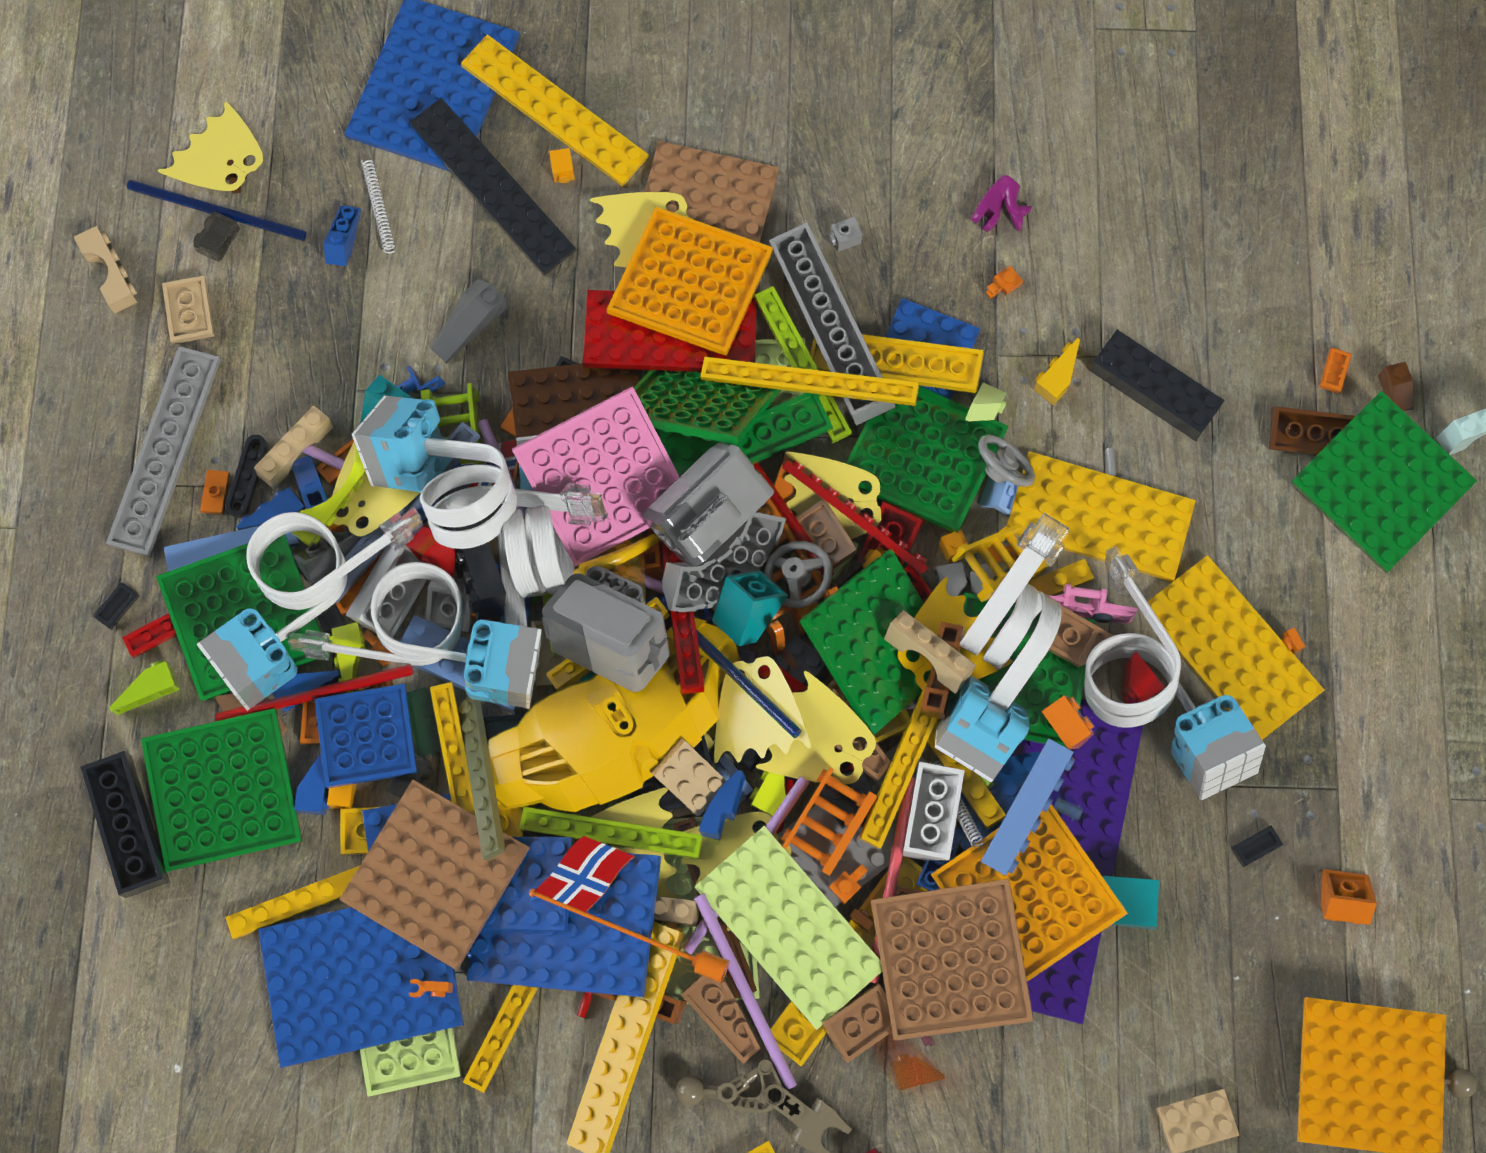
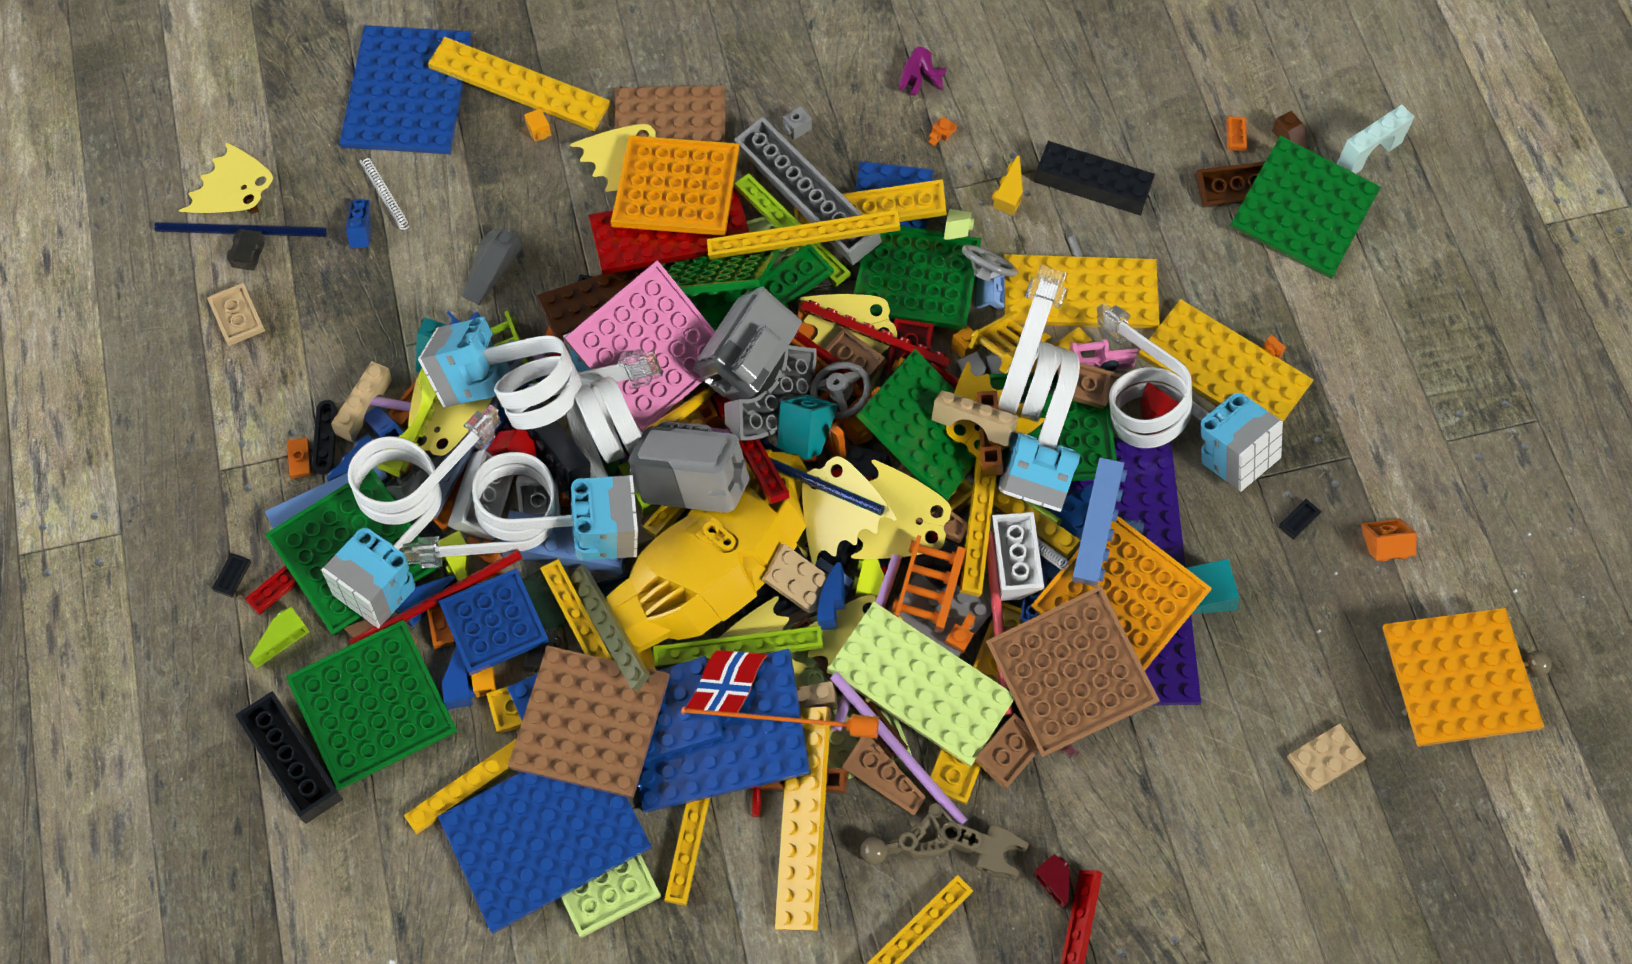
camera: 15 degrees left, 10 degrees down
(115, 289) = (166, 312): tan arch -> none
(163, 451) = (243, 436): light grey plate -> none
(437, 989) = (617, 816): orange plate -> none
(492, 186) = (482, 154): black plate -> none
(862, 919) = (982, 662): reddish brown plate -> none
(913, 1072) = (1068, 781): clear orange slope -> none
(1068, 722) = (1111, 444): orange slope -> none

